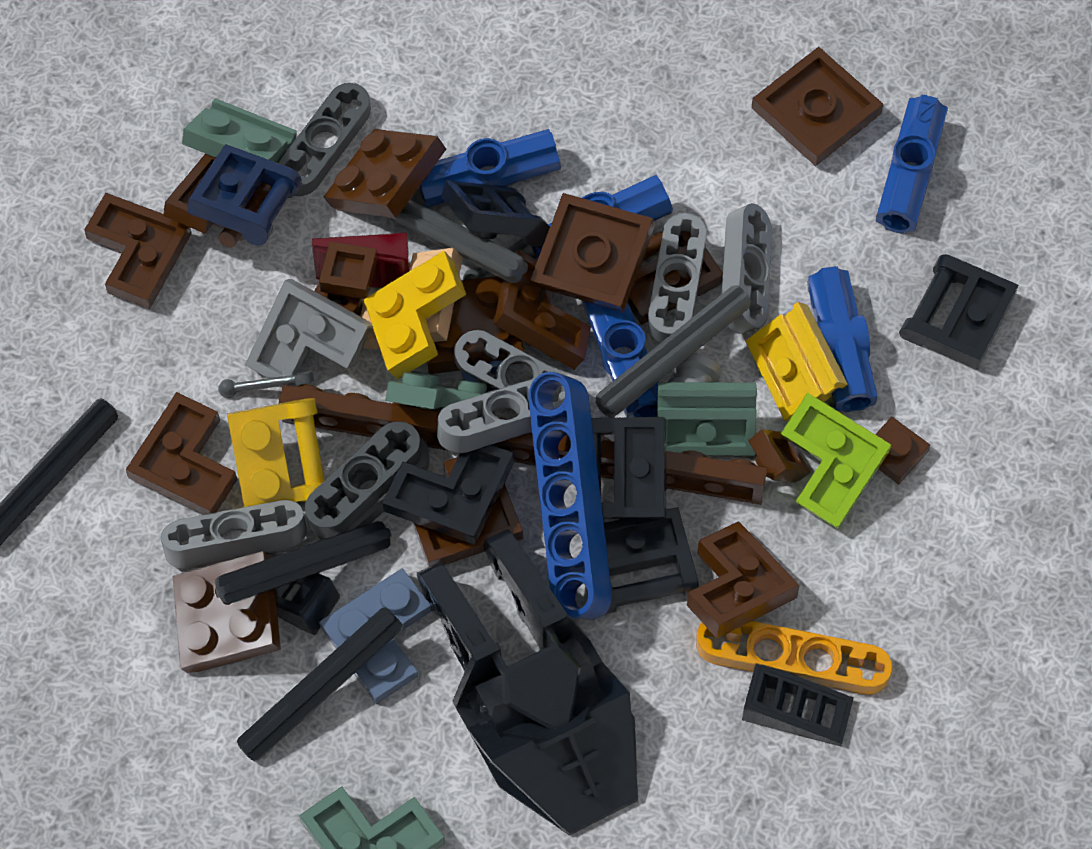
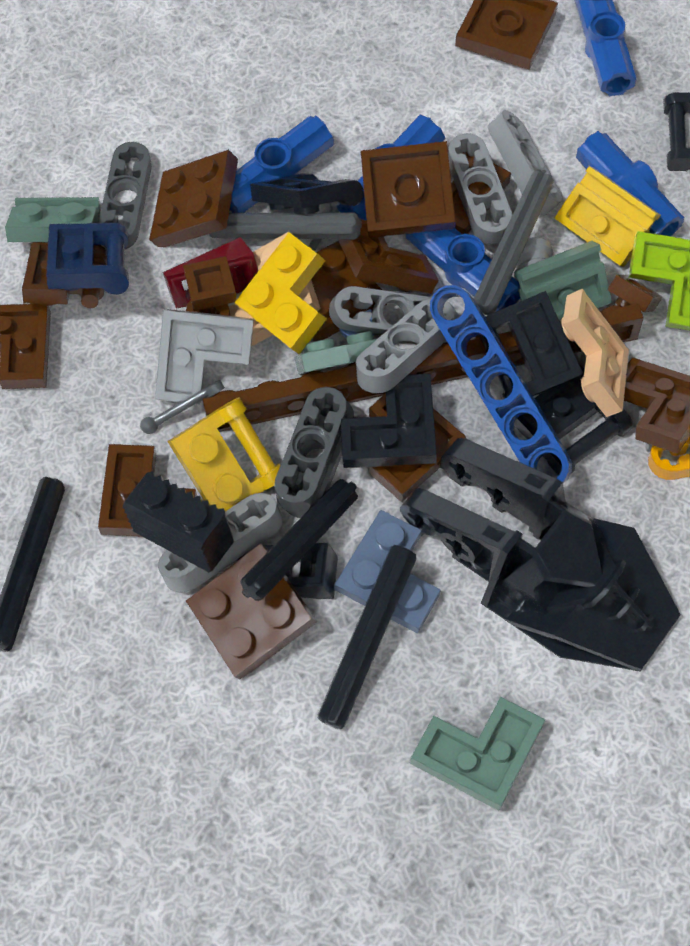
camera: 25 degrees left, 0 degrees up
(195, 497) = (179, 521): none -> black brick
(700, 503) = (604, 352): none -> light nougat plate

